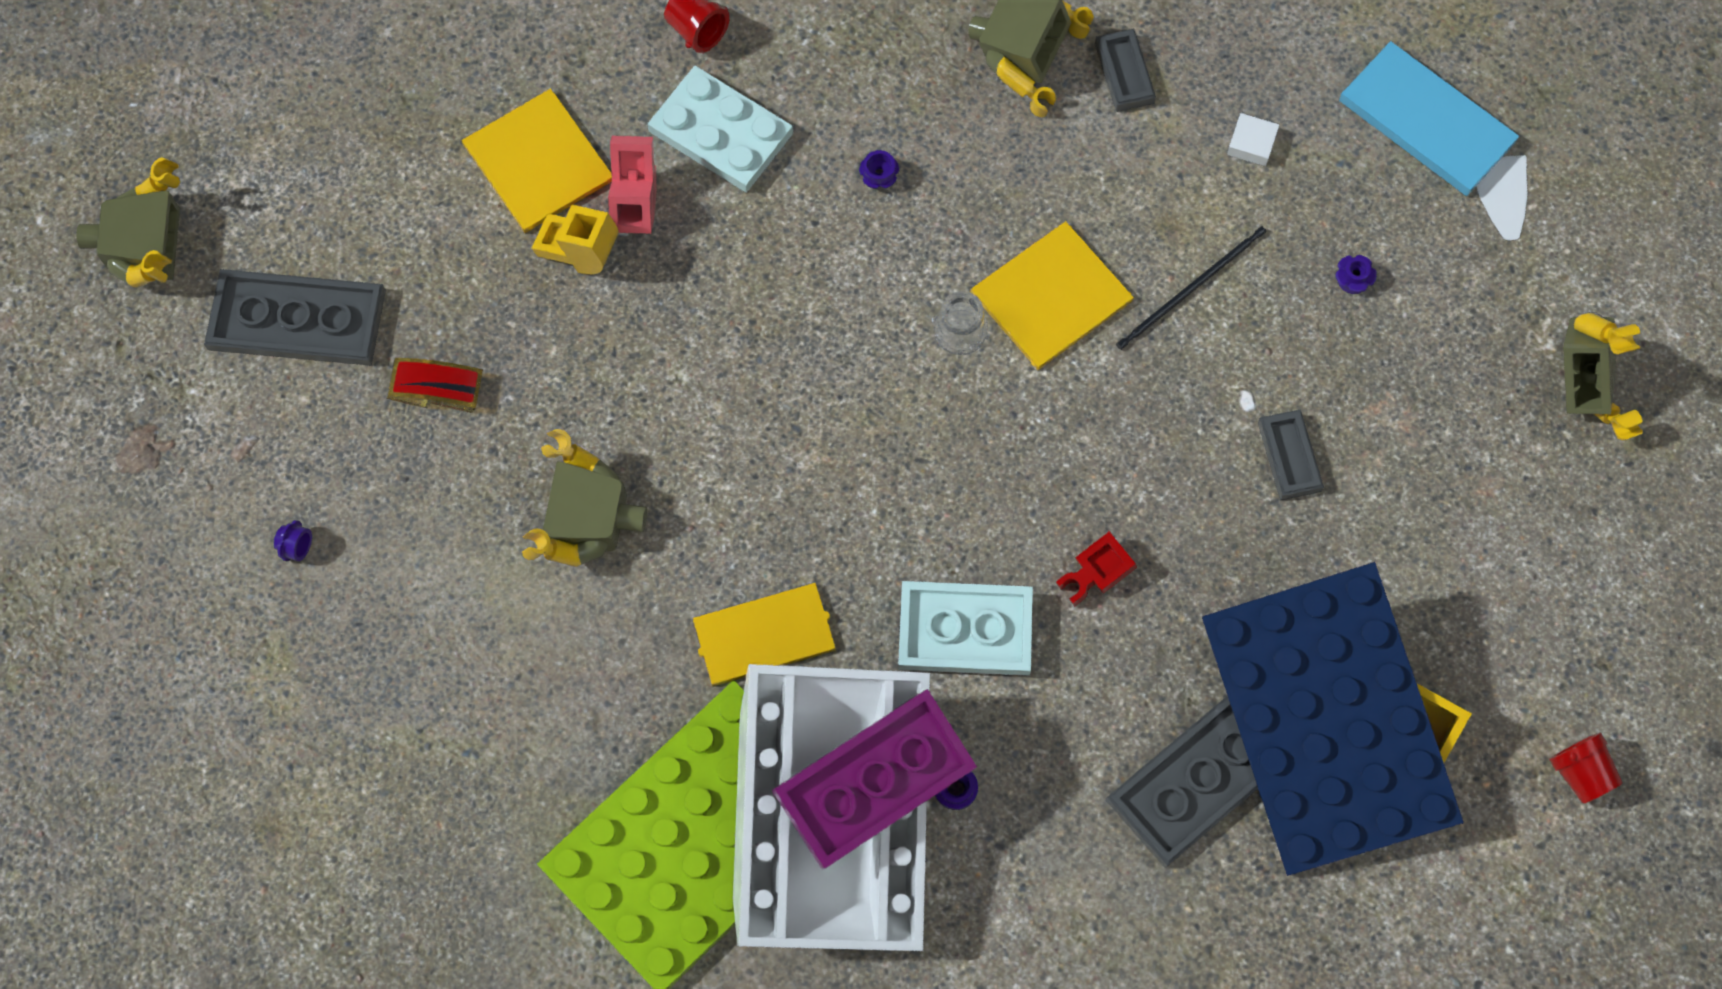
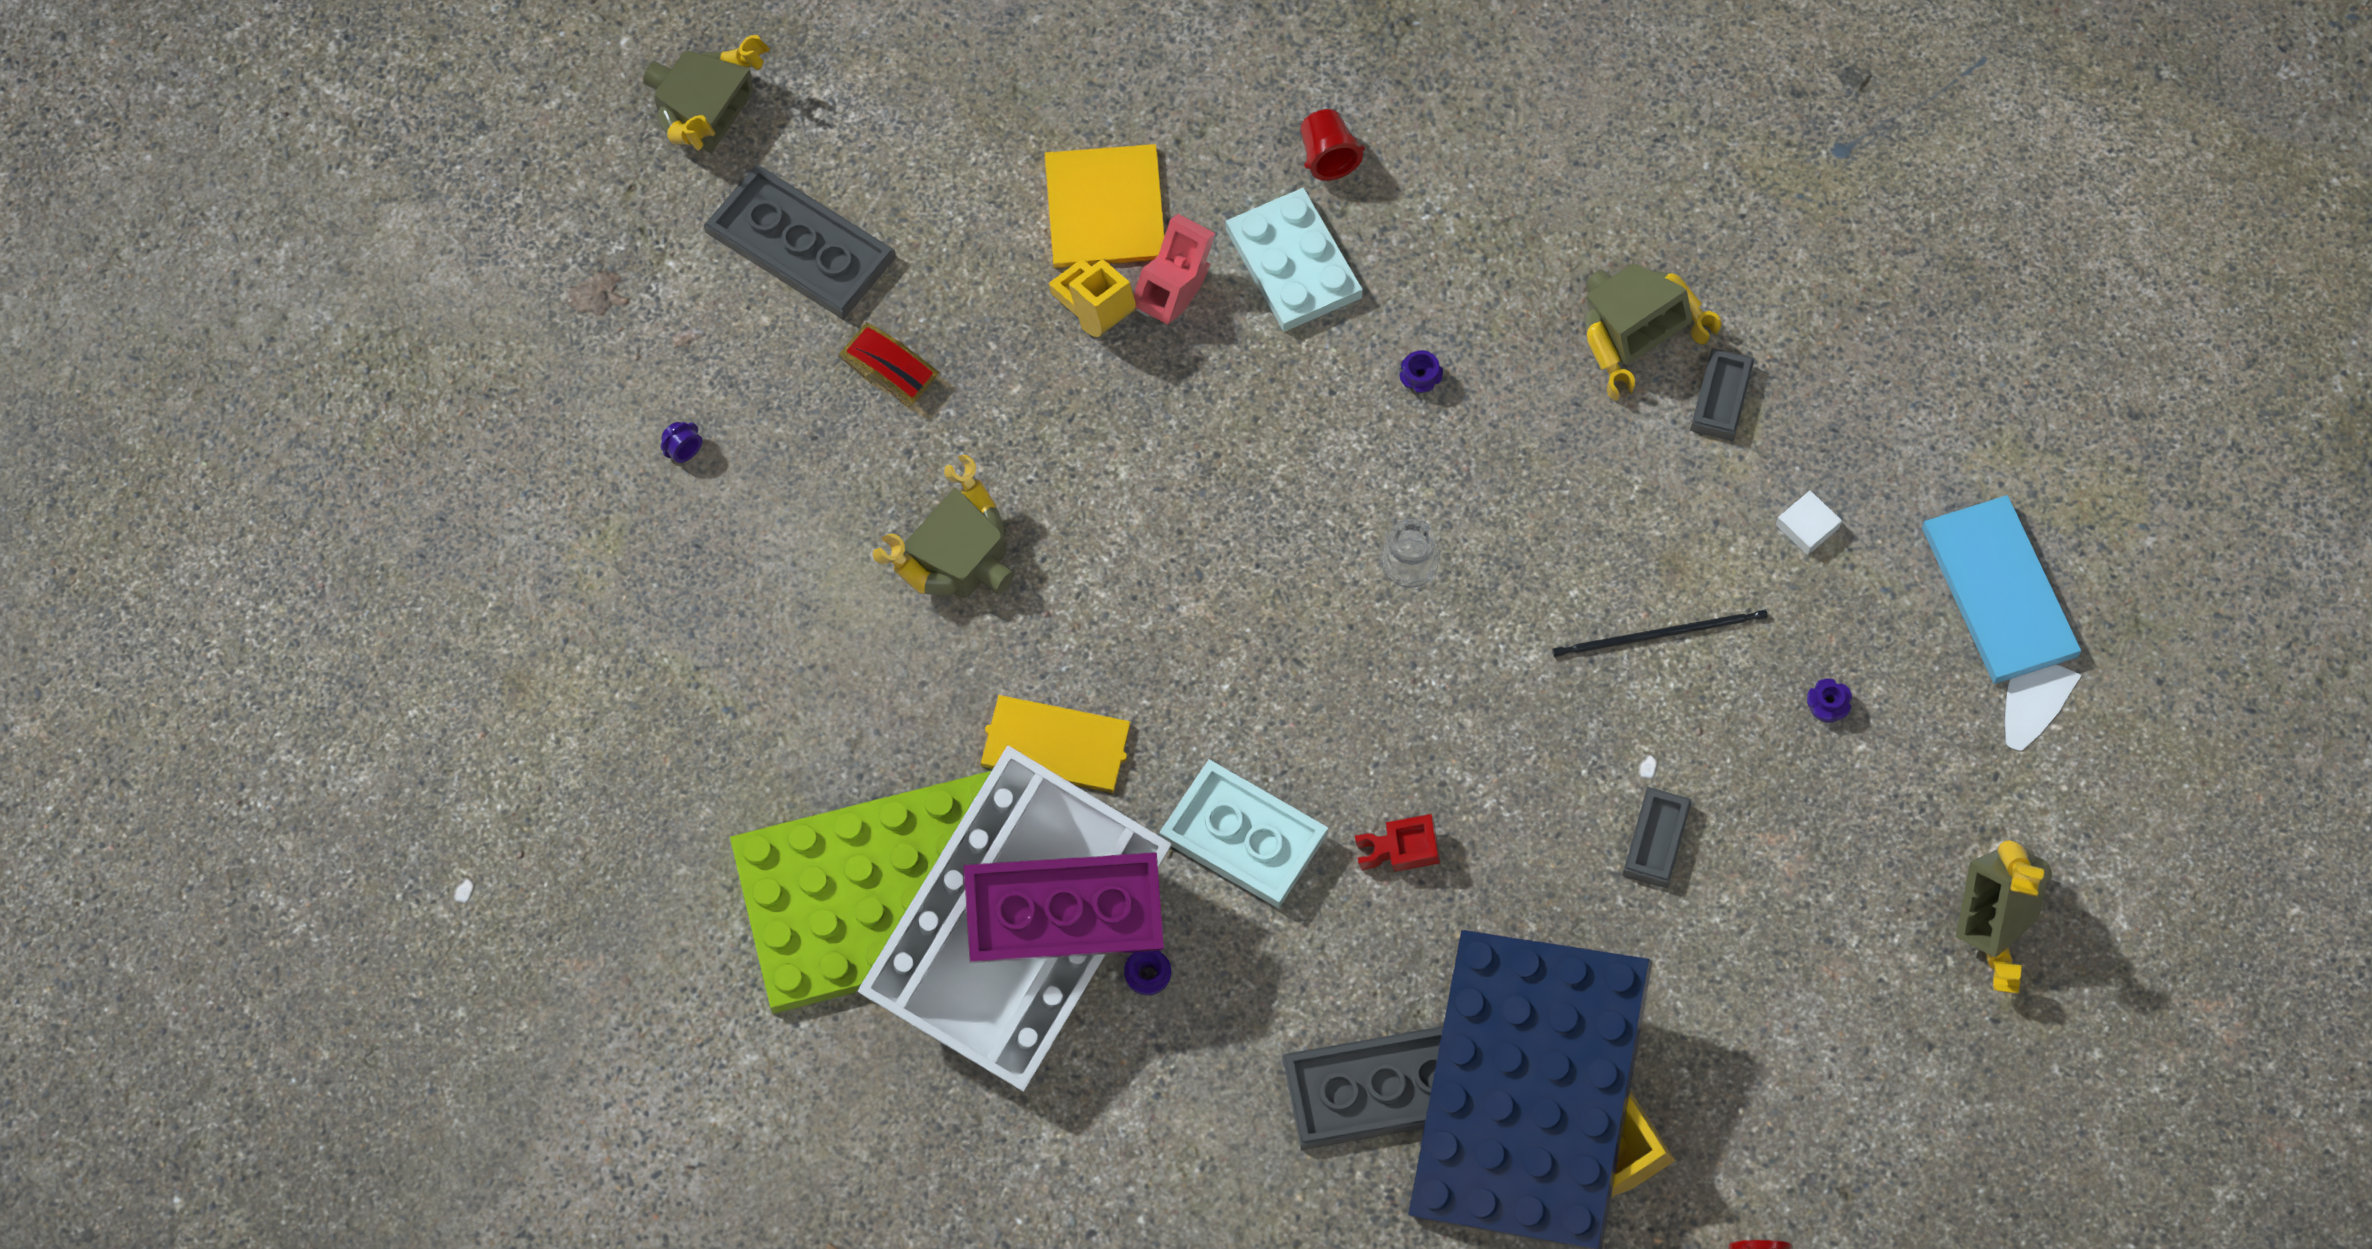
camera: 30 degrees right, 5 degrees down
(1052, 295) = (1518, 572): yellow piece -> none

